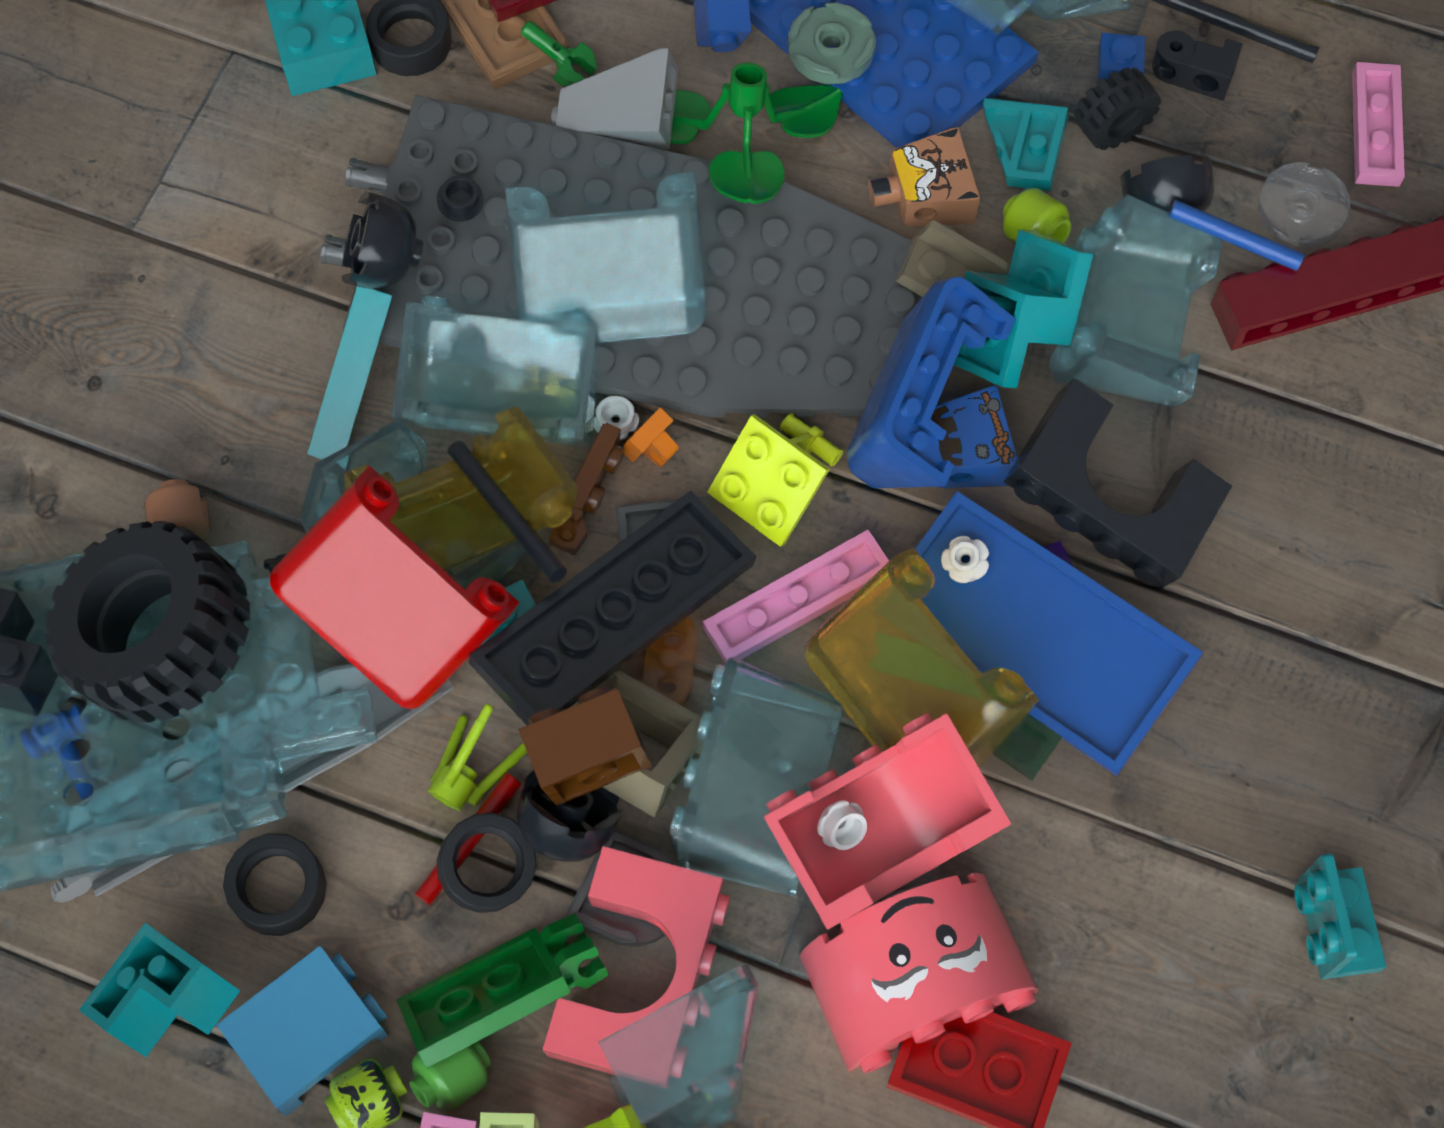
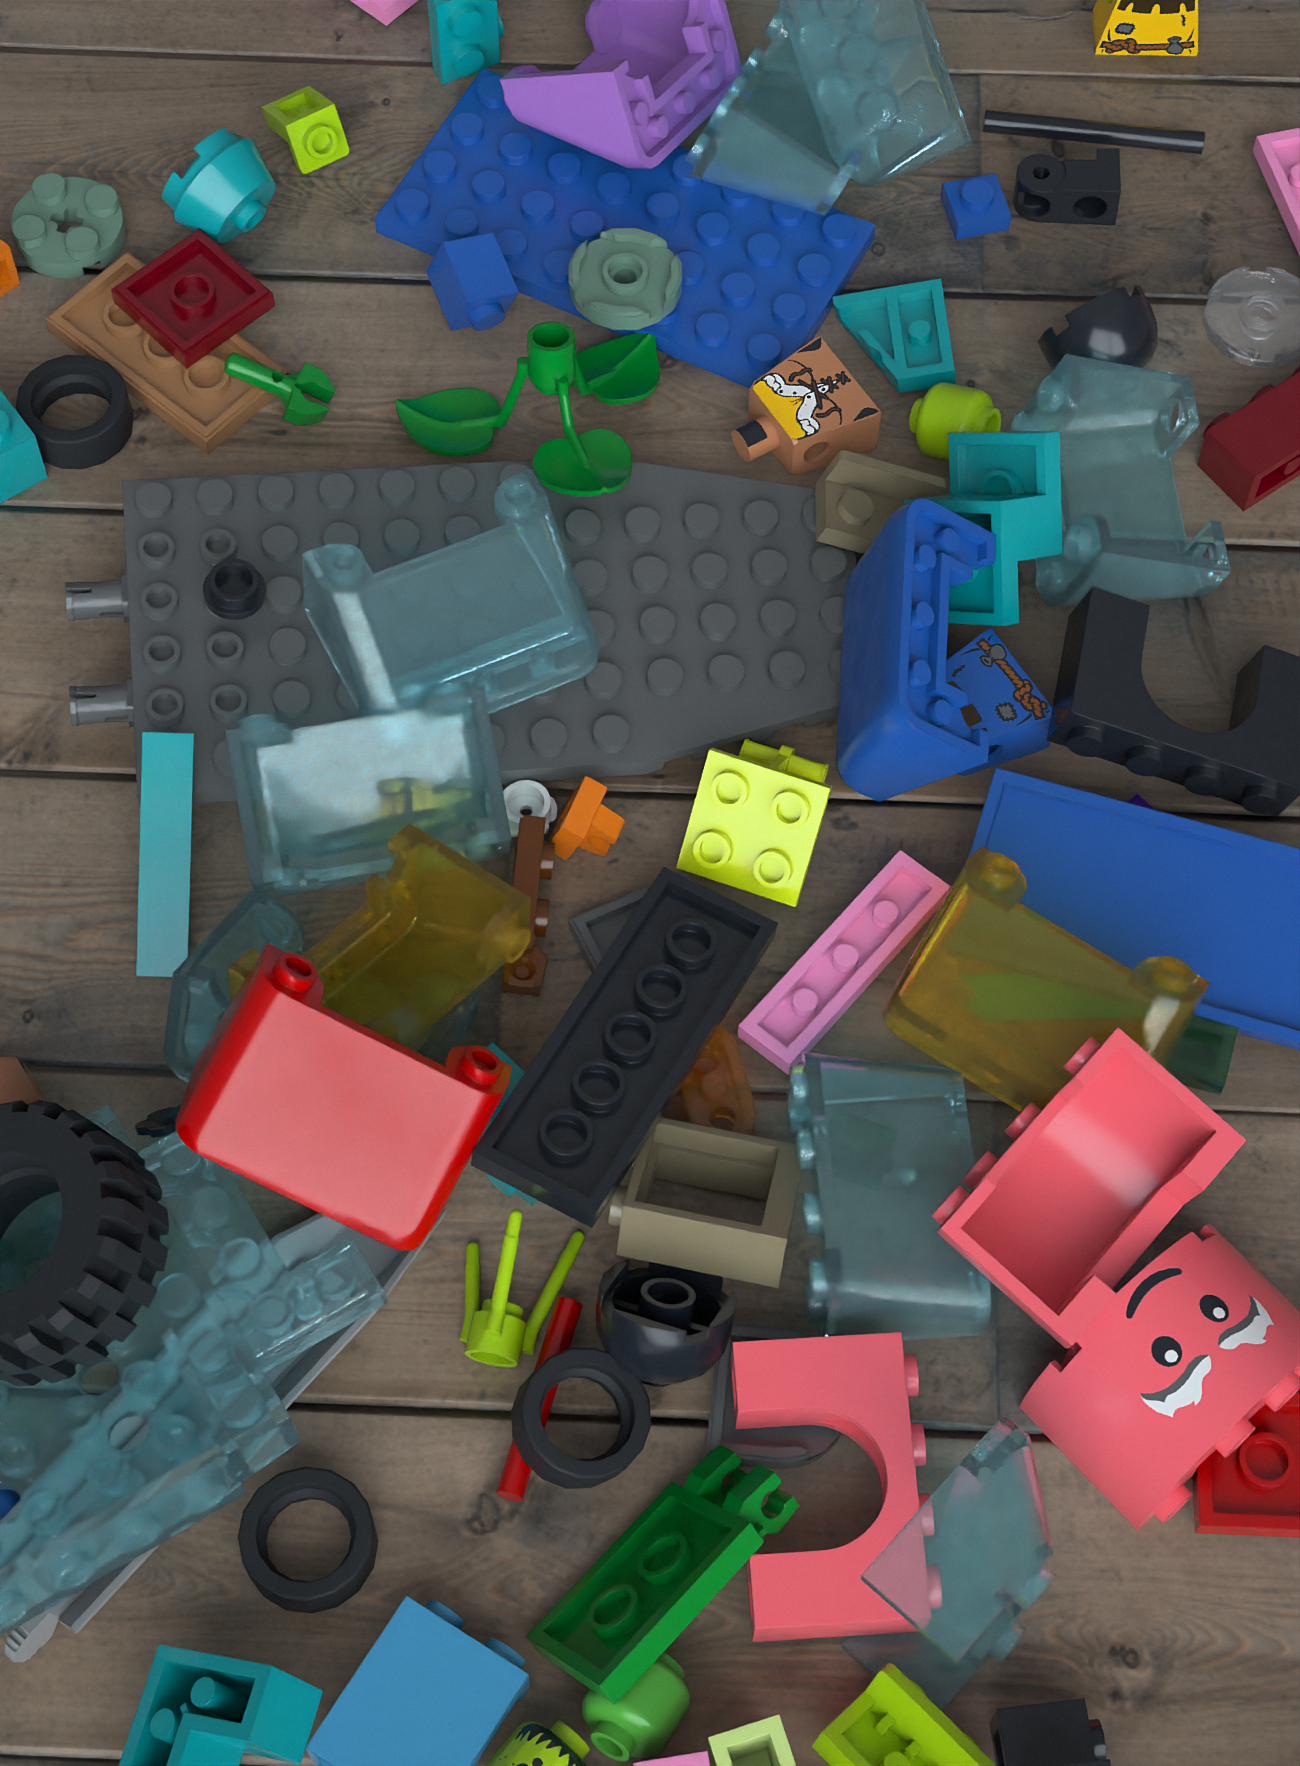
camera: 20 degrees left, 5 degrees down
(380, 243) = (155, 670): black cylinder -> none
(507, 511) = (448, 958): black bar -> none
(584, 745) = (678, 1212): reddish brown brick -> none
(624, 102) = (390, 418): light grey slope -> none
(842, 825) = (1027, 1215): white plate -> none
(969, 571) = (1042, 863): white plate -> none
(1117, 108) = (1001, 263): black tyre -> none
(1236, 235) = (1208, 368): blue bar -> none

